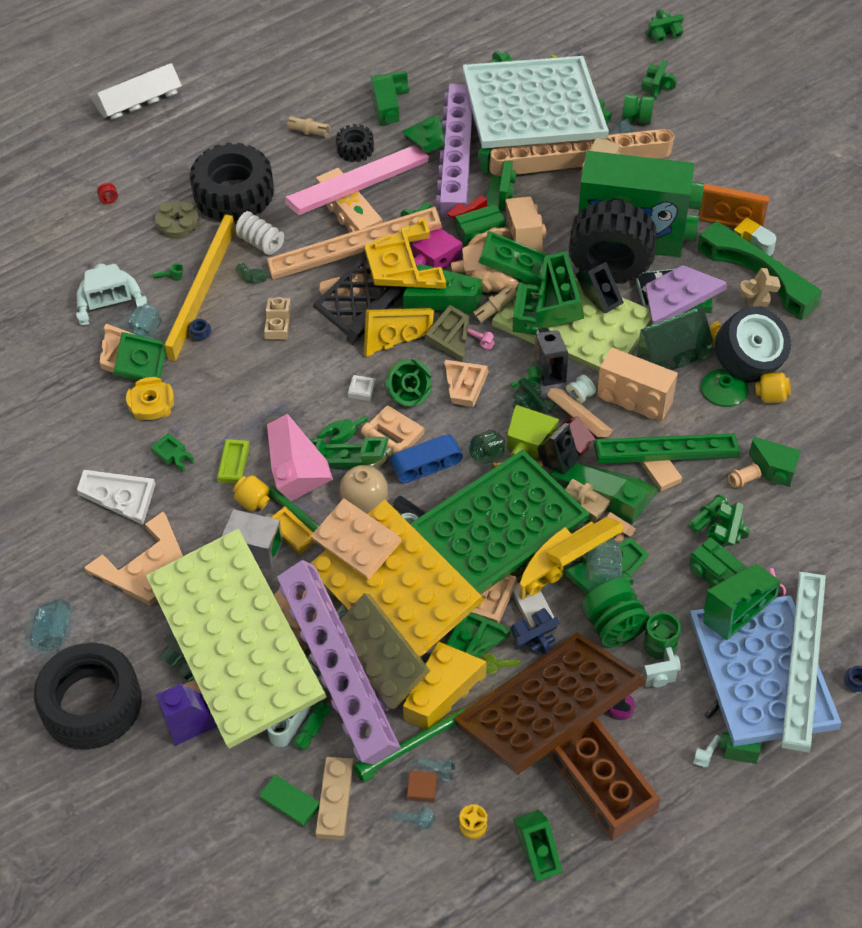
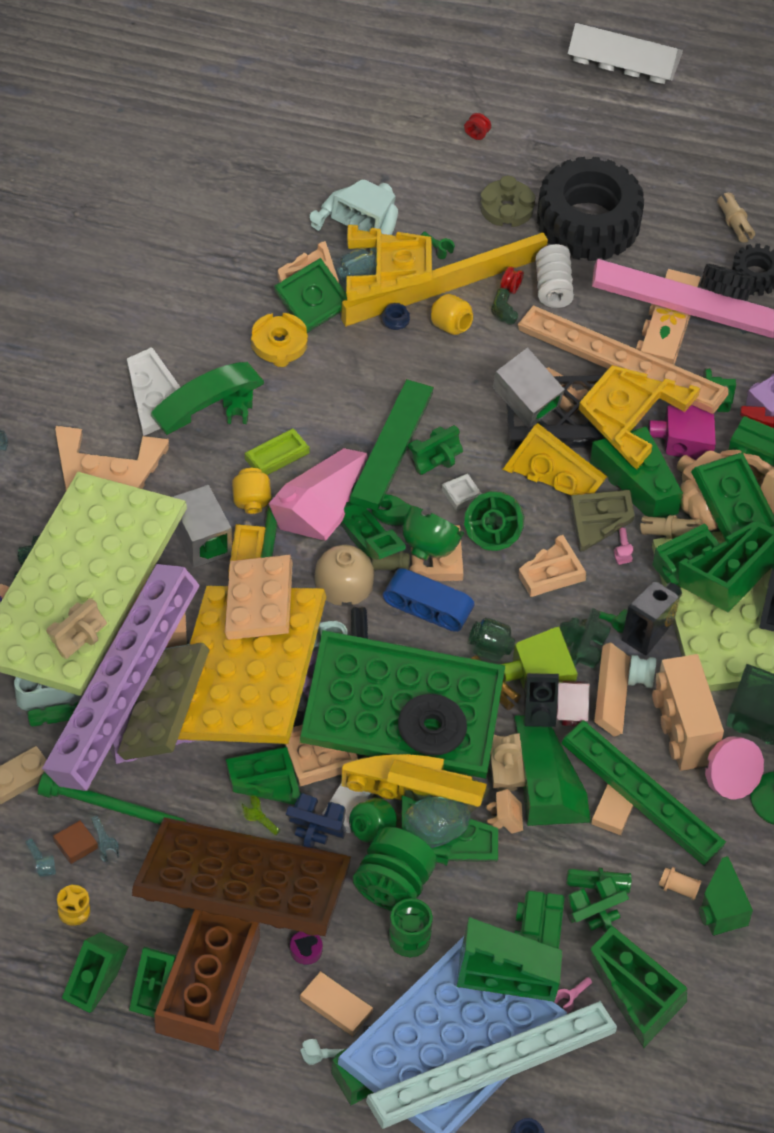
camera: 45 degrees right, 0 degrees up
(154, 467) = (202, 392): none -> green slope
(170, 293) = (400, 261): none -> yellow wing
(230, 300) = (451, 314): none -> yellow head
(237, 255) = (512, 280): none -> red bush
(277, 318) = (474, 367): tan slope -> none
(285, 658) = (77, 629): none -> tan hips
(295, 397) = (391, 445): none -> green tile
(323, 377) = (437, 450): none -> green hips
(338, 295) = (528, 387): none -> flat silver piece
(356, 158) = (726, 282): none -> black tyre
(388, 420) = (429, 534): none -> green cylinder
(449, 679) = (187, 781): yellow wedge -> none
(529, 528) = (432, 741): none -> black wheel
(564, 600) = (370, 817): none -> green head
(577, 814) = (151, 980): none -> green slope
(664, 672) = (373, 958): light aqua bracket -> none
(677, 718) = (336, 1003): none -> light nougat tile
(694, 390) = (734, 767): none -> bright pink tile
(803, 545) = (637, 984): none -> green wedge

